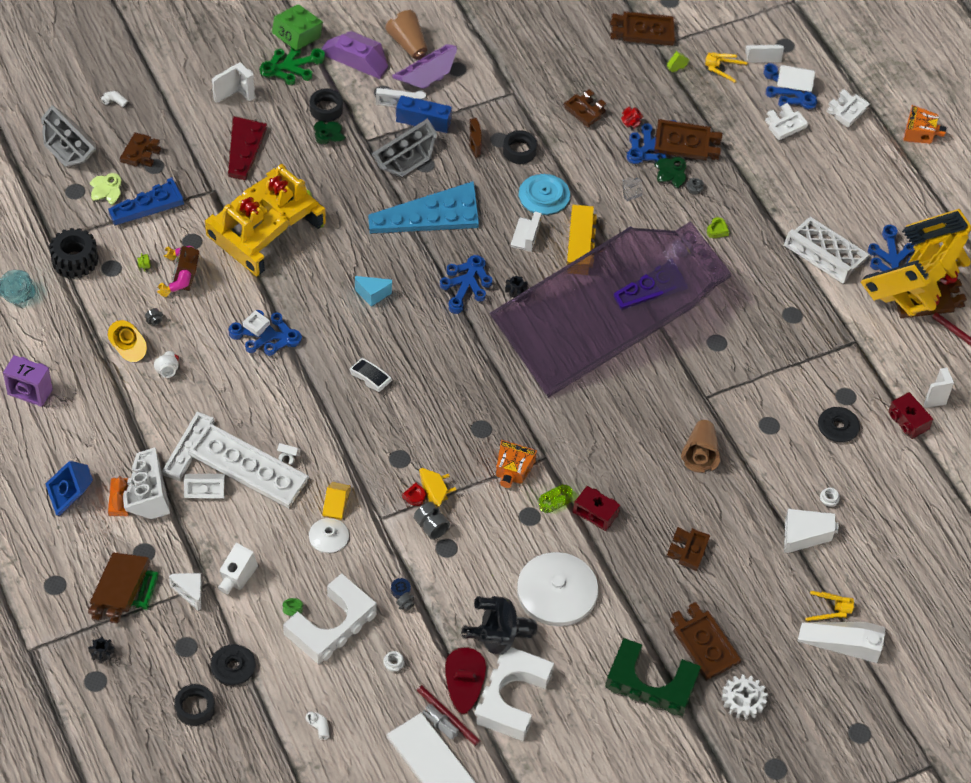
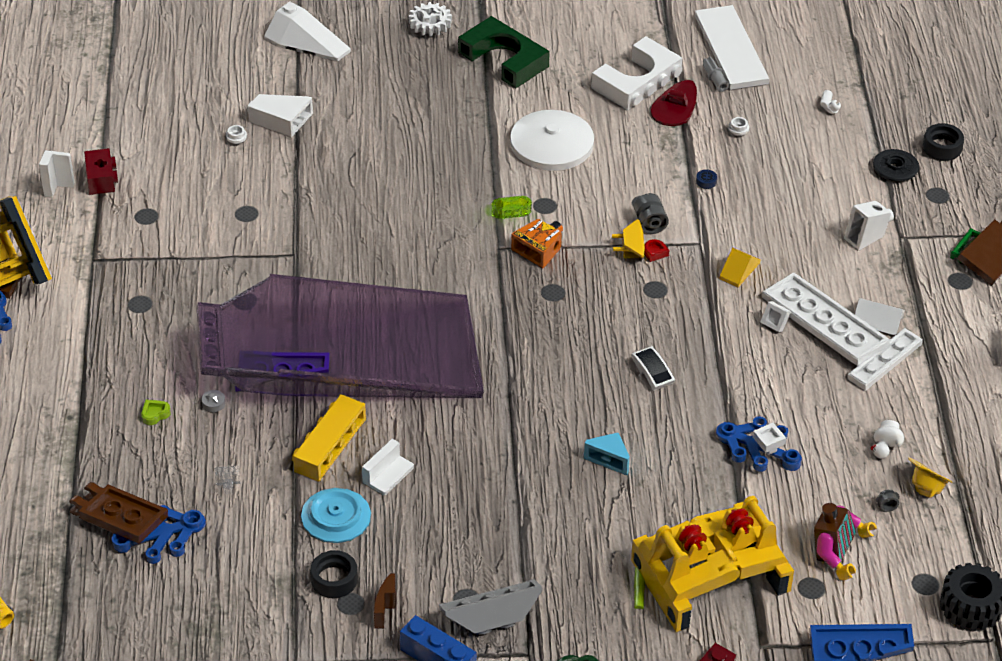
camera: 155 degrees left, 10 degrees down
(116, 503) = (975, 330): orange tile -> none
(144, 261) = (882, 569): lime plate -> none
(146, 487) = (944, 322): white wedge -> none
(188, 586) = (924, 229): white slope -> none
(292, 606) = (821, 189): bright green tile -> none
(320, 642) = (804, 152): white arch -> none
(329, 542) = (760, 243): white dish -> none
(406, 601) = (707, 162): dark grey plate -> none
(440, 211) = (489, 529): dark azure wing -> none
(453, 719) = (705, 81): dark red bar -> none
(474, 265) = (471, 450): blue plant -> none
(499, 624) = (629, 103): black piece -> none
(515, 286) = (437, 406): black gear -> none
(580, 108) = (222, 600): reddish brown plate -> none
(596, 508) = (476, 182): dark red brick -> none
(631, 117) = (166, 563): red gear -> none
(669, 171) = (161, 490): dark green plate -> none
(677, 62) = (48, 625): lime tile -> none
(694, 549) = (401, 130): reddish brown plate -> none
(695, 185) = (145, 465): dark grey plate -> none
(702, 448) = (335, 196): medium nougat cone -> none
(704, 642) = (438, 65): reddish brown tile -> none
(820, 256) = (66, 345): white fence -> none
(836, 434) = (164, 194): black wheel -> none
(842, 604) = (291, 55): yellow plant -> none

